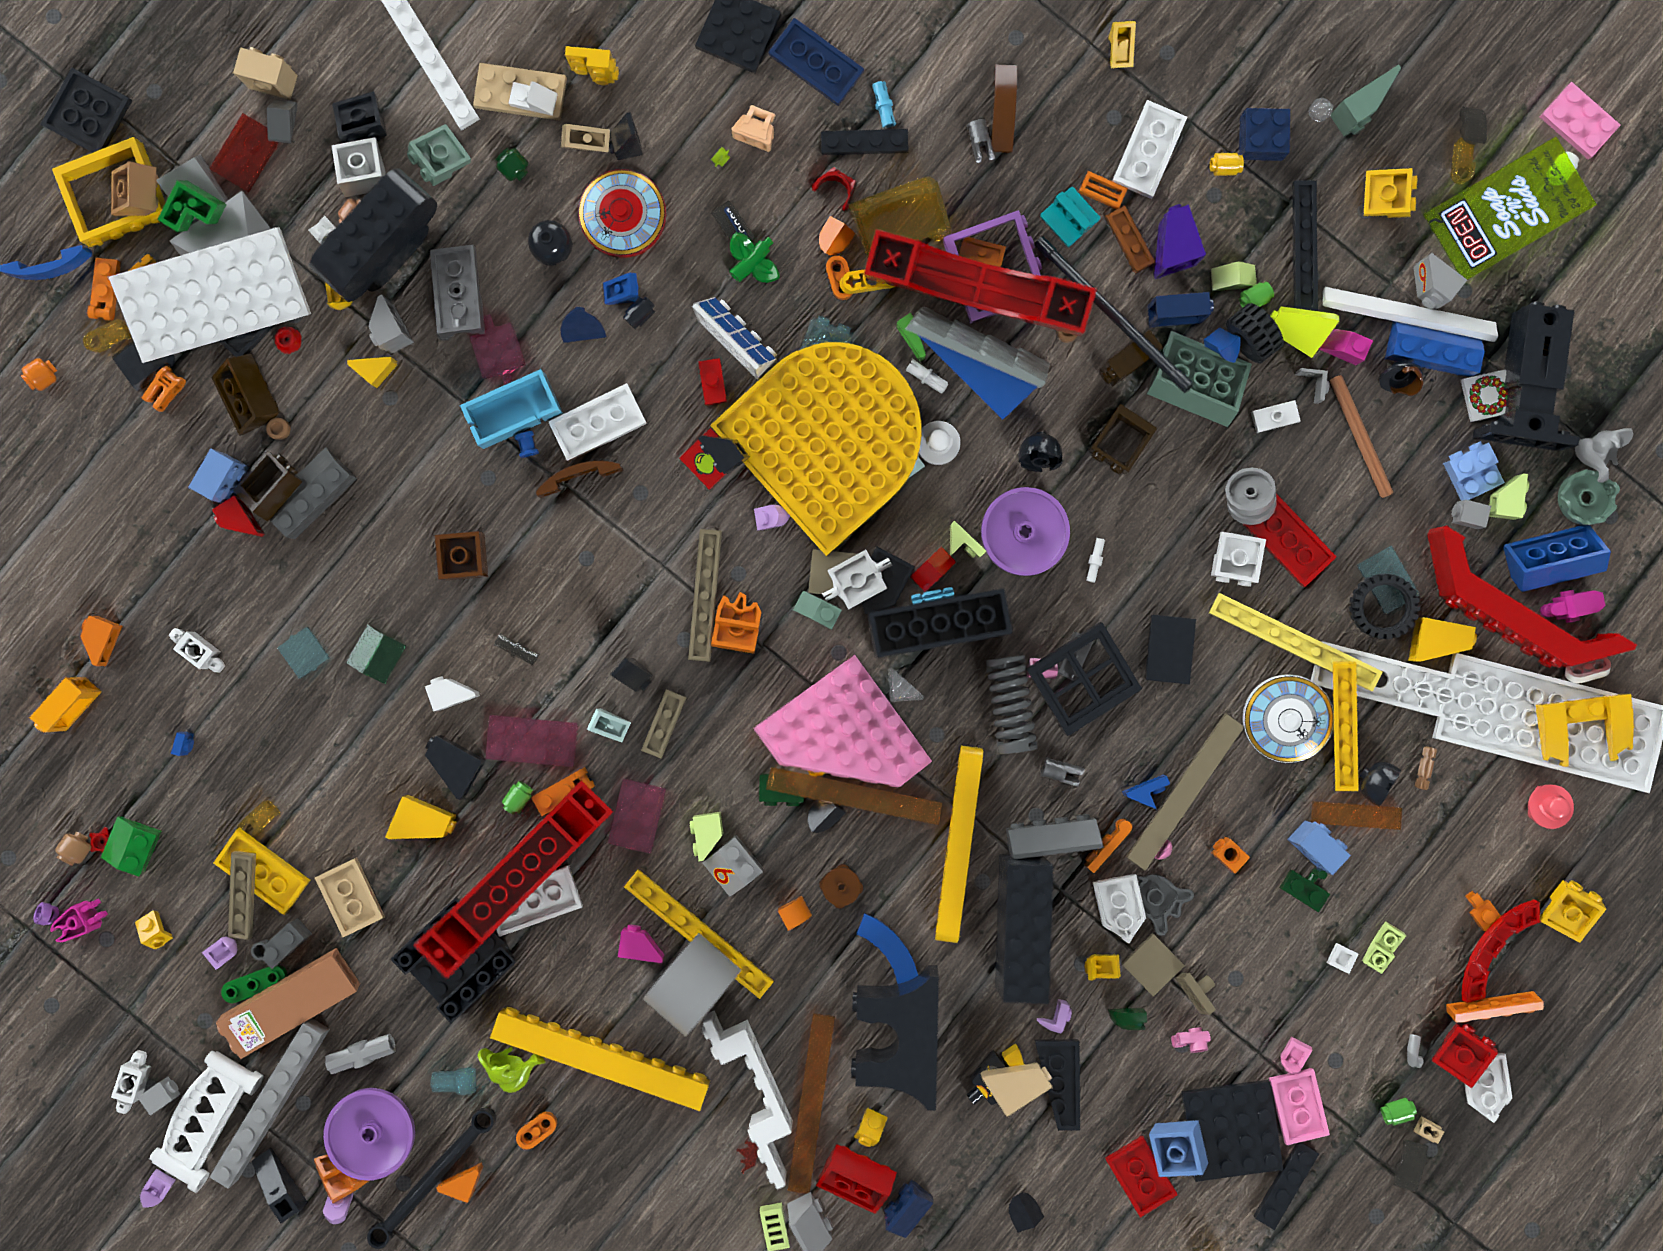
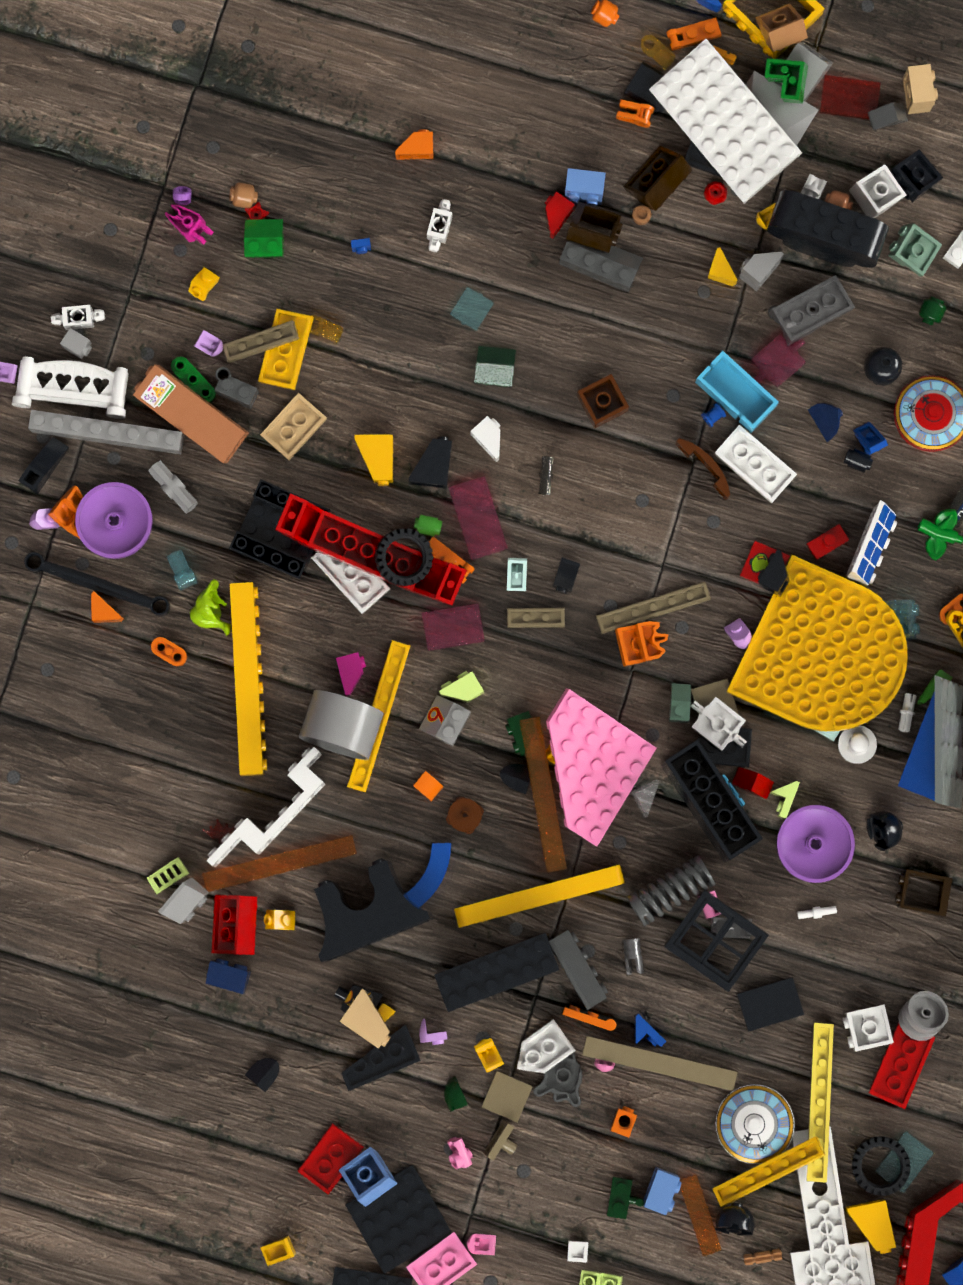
camera: 65 degrees right, 5 degrees down
(65, 704) = (354, 143): light orange window -> none
(541, 815) = (380, 555): none -> black tyre

